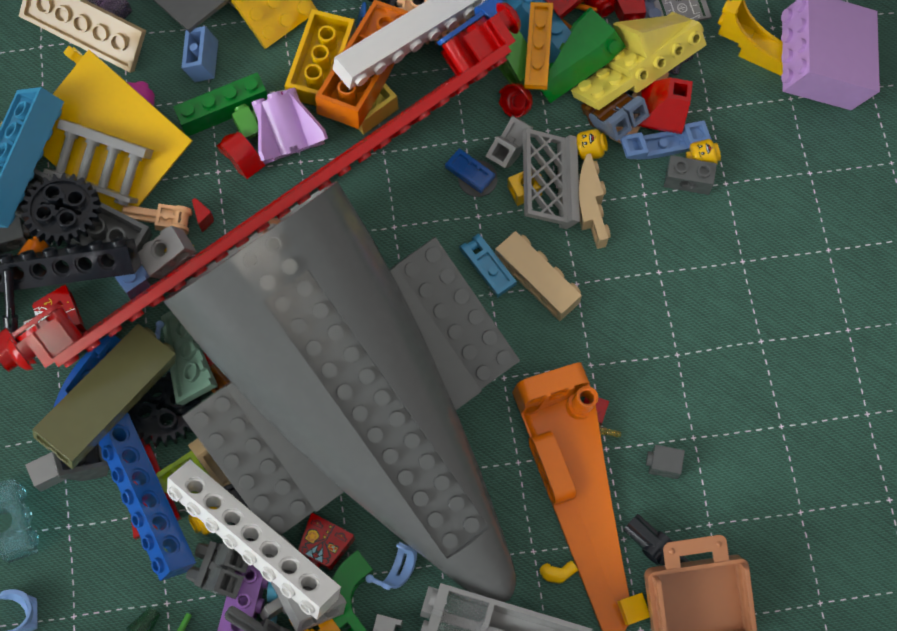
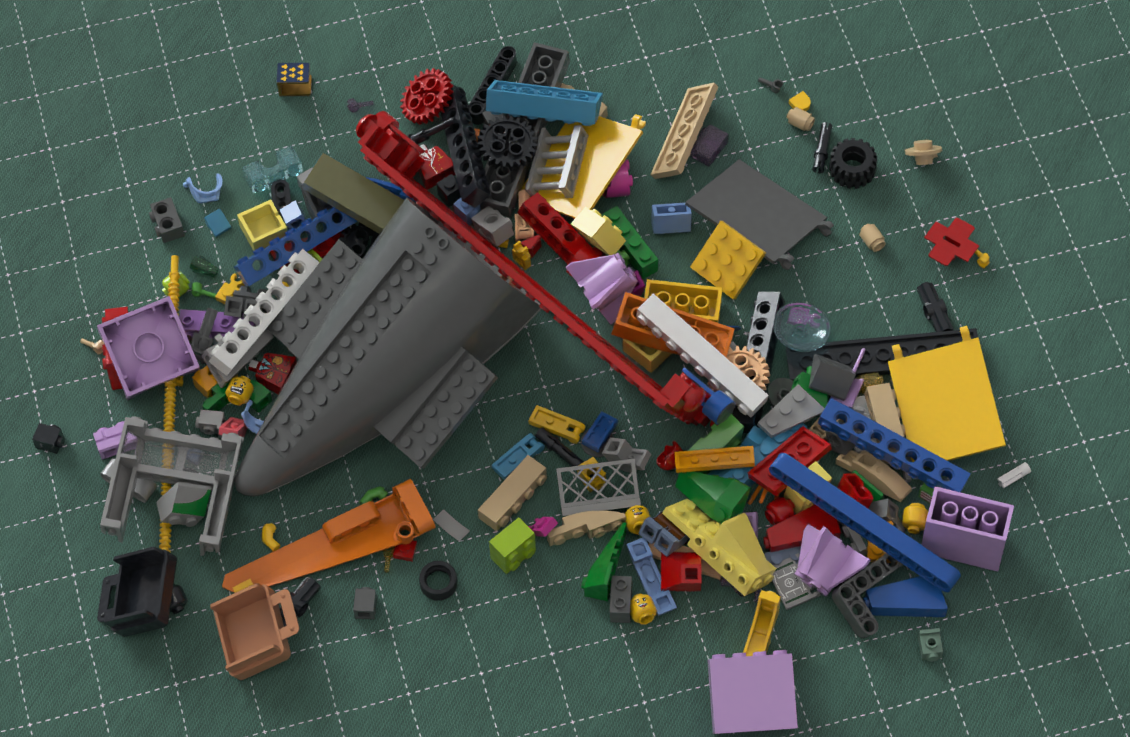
camera: 85 degrees right, 10 degrees down
(57, 513) = (280, 198): none -> black plate
(76, 602) = (217, 222): none -> dark azure slope
(95, 496) = (293, 215): none -> brick
(99, 298) = (448, 190): none -> black brick
(101, 542) = (262, 224): none -> light yellow piece
(187, 182) = (551, 227): none -> red brick
(187, 595) = (228, 289): none -> yellow plate
(211, 124) = (599, 231): none -> light yellow brick
(214, 225) = (521, 255): none -> yellow plate
(355, 587) = (239, 390): none -> yellow head
(399, 604) = (233, 425): none -> coral slope
(451, 216) = (556, 424): none -> yellow plate
(478, 222) = (554, 444): none -> black pin
(514, 438) = (373, 493): none -> bright green arm
(567, 352) = (450, 525): none -> light grey sticker
(592, 244) = (543, 526): none -> dark pink plate
(614, 279) = (512, 546): none -> lime brick
(650, 357) = (431, 568): none -> black tyre
(657, 189) = (598, 582): none -> green wedge

